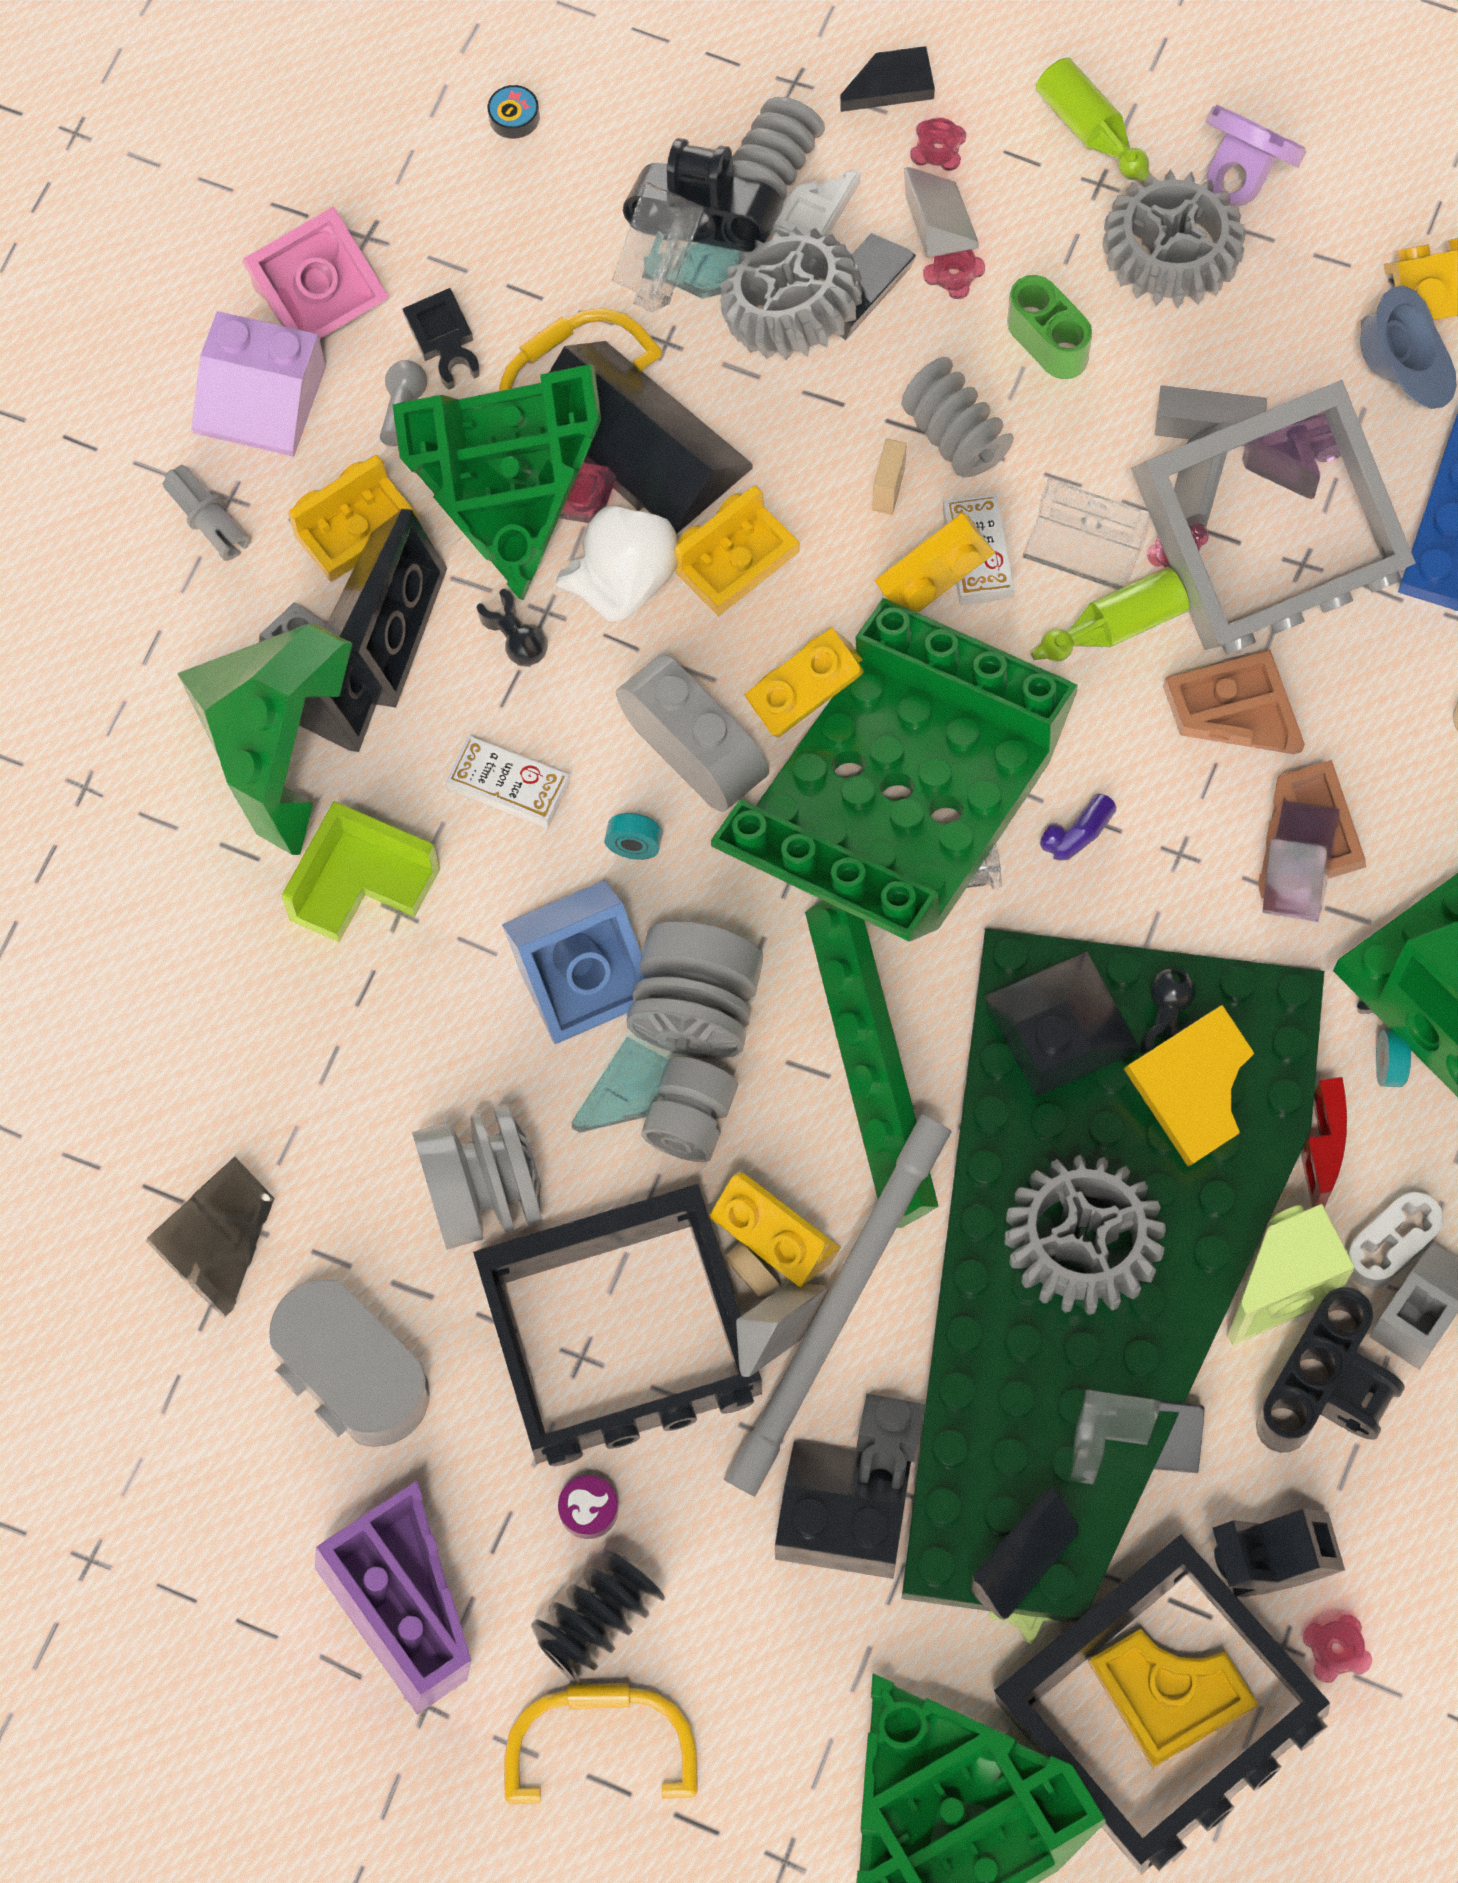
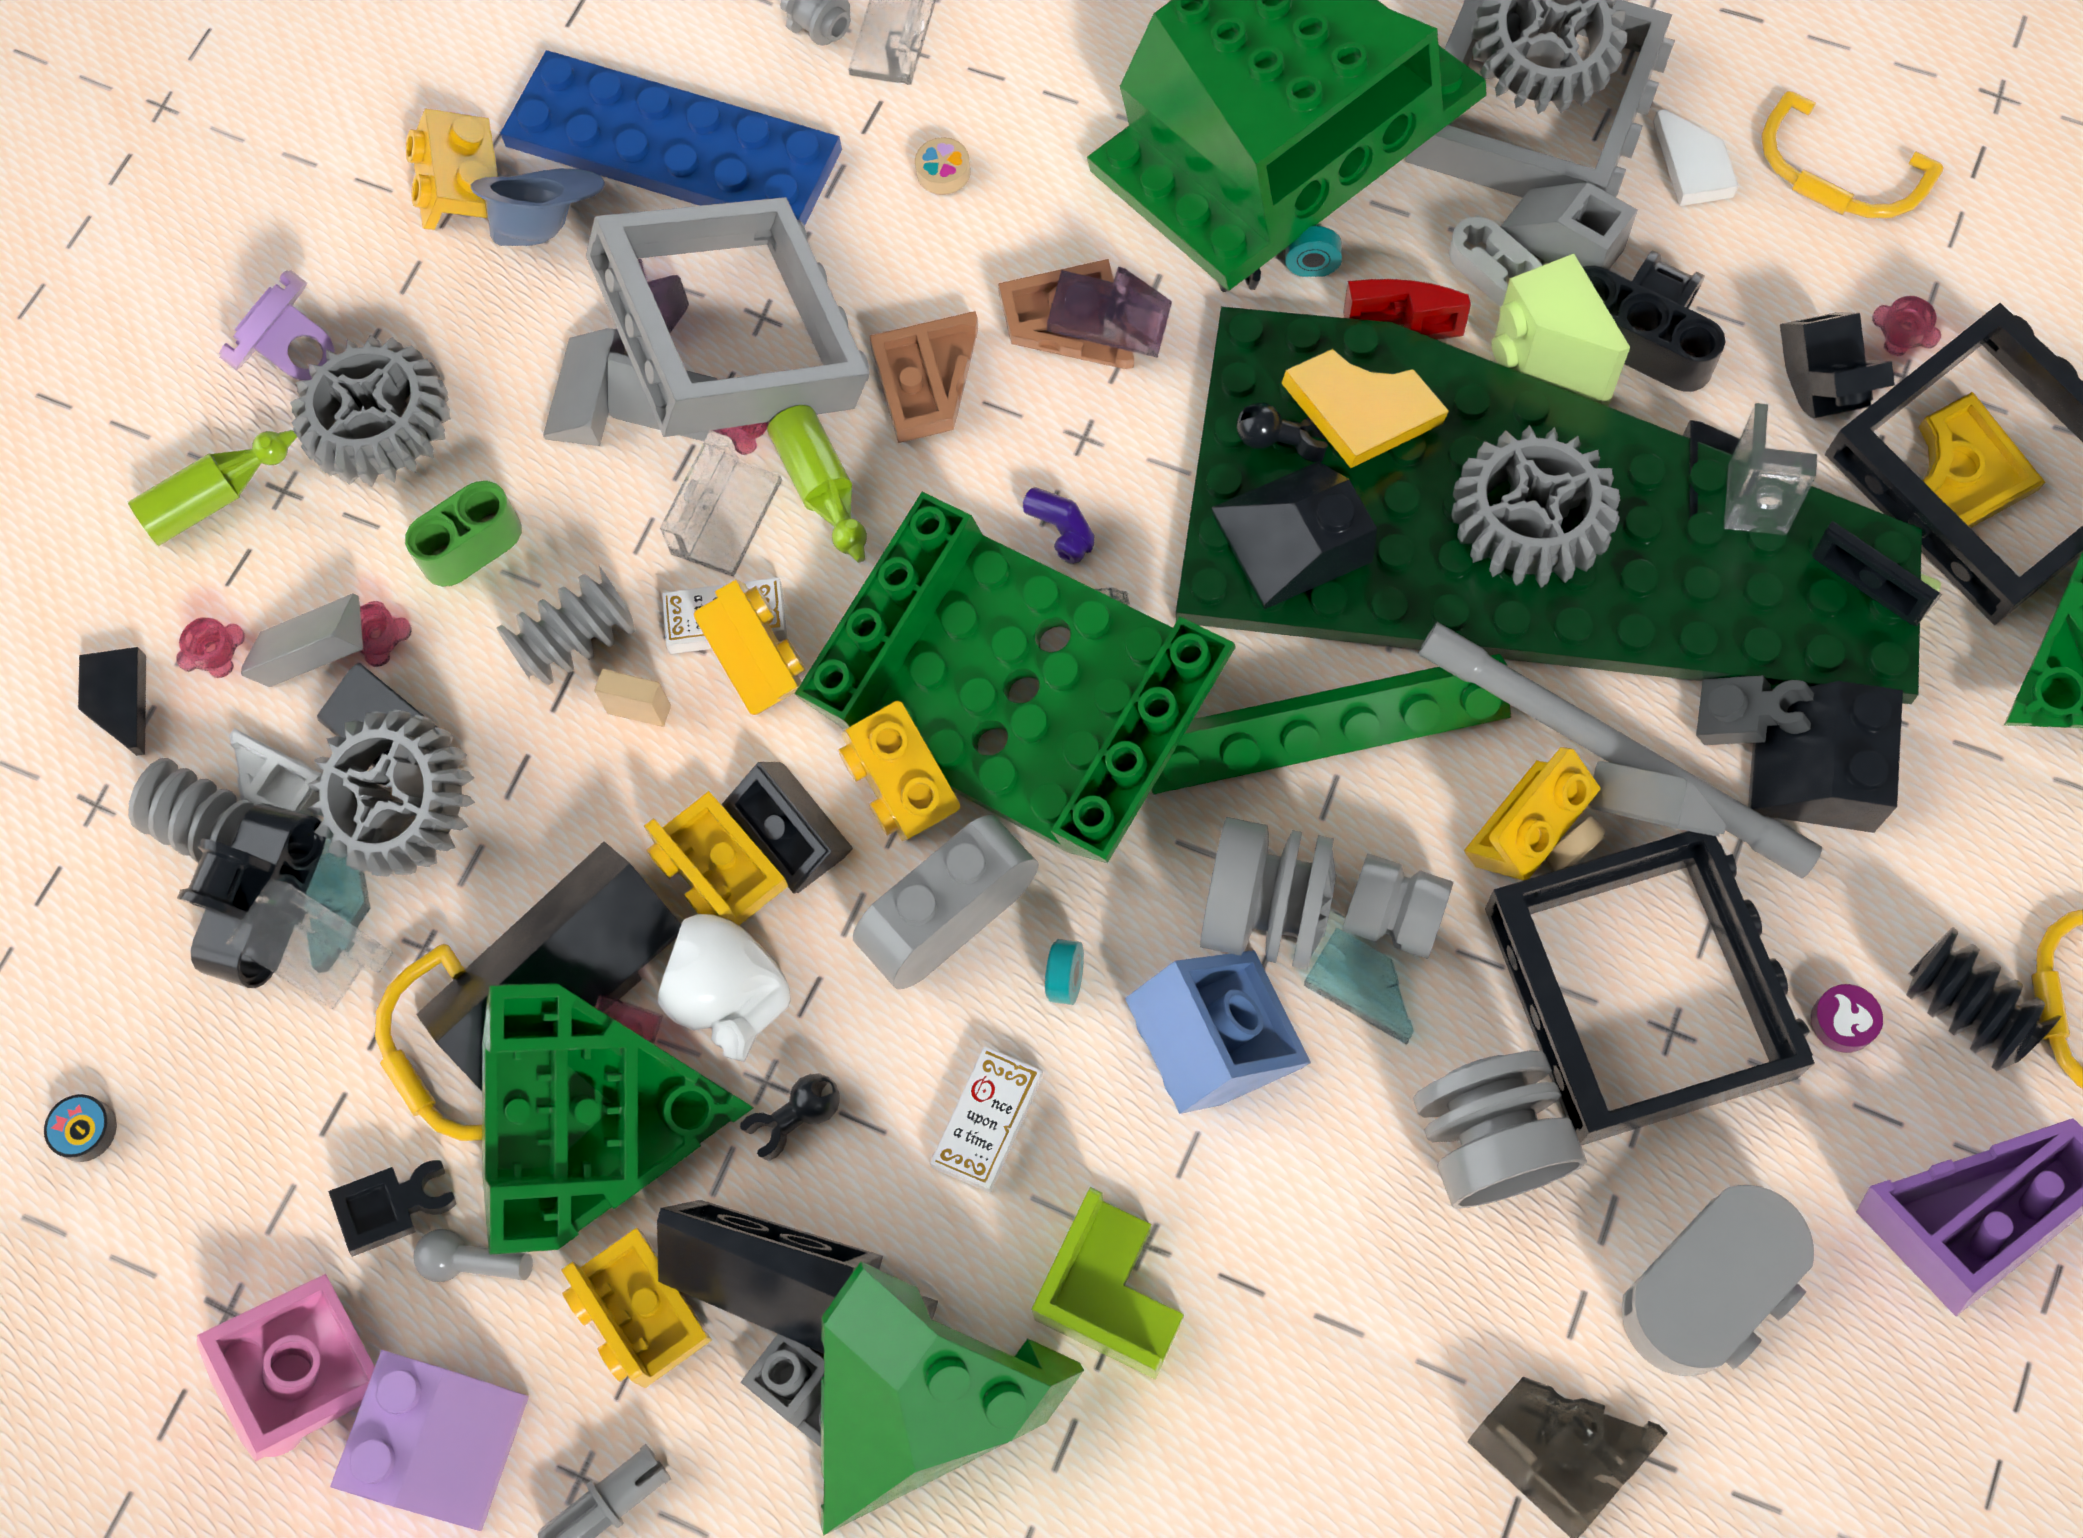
camera: 85 degrees left, 0 degrees up
(777, 614) = (786, 824): none -> black slope

